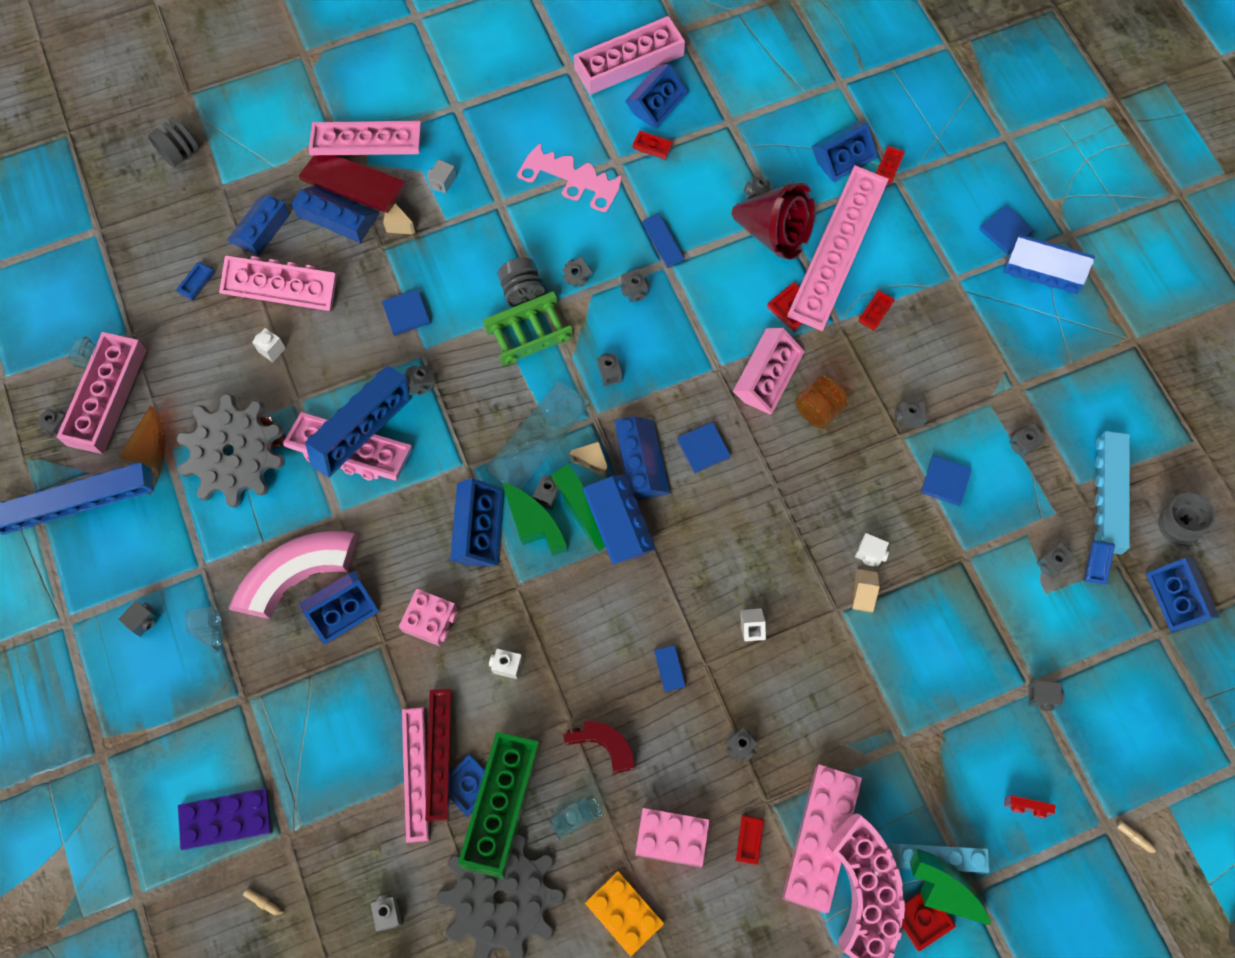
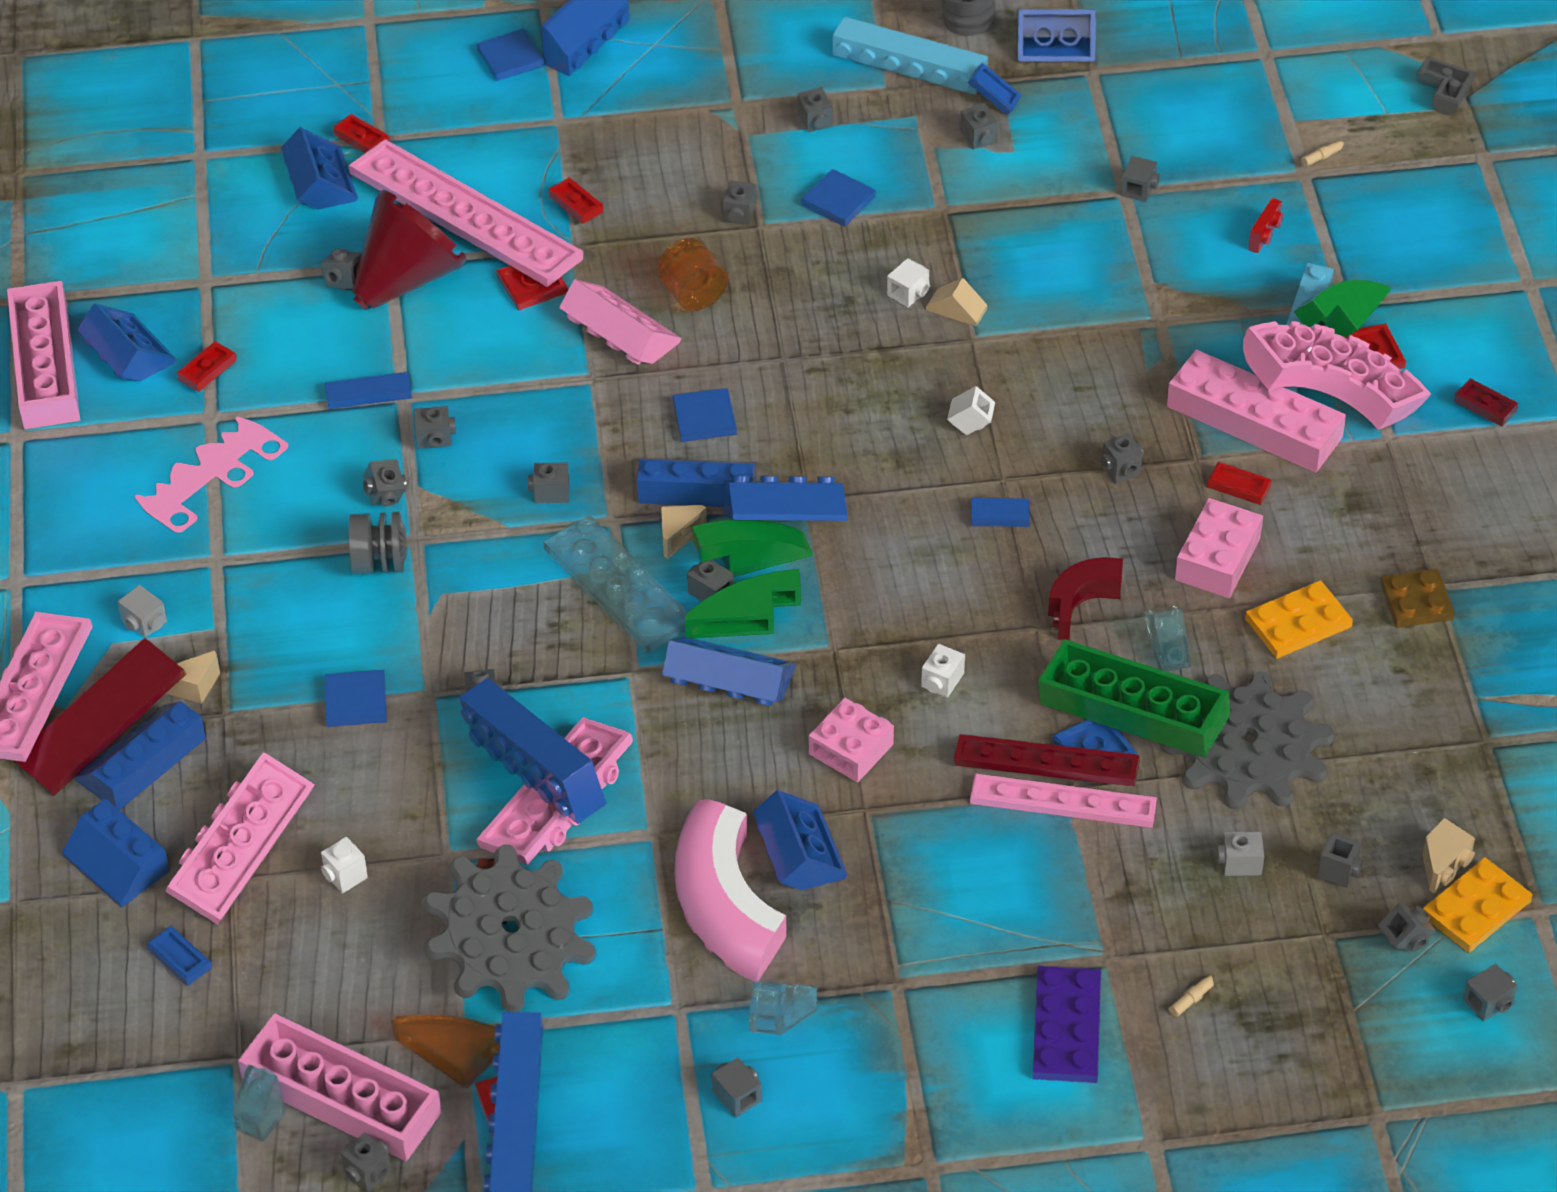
camera: 75 degrees left, 20 degrees down
(524, 311) = (425, 572): bright green fence -> none

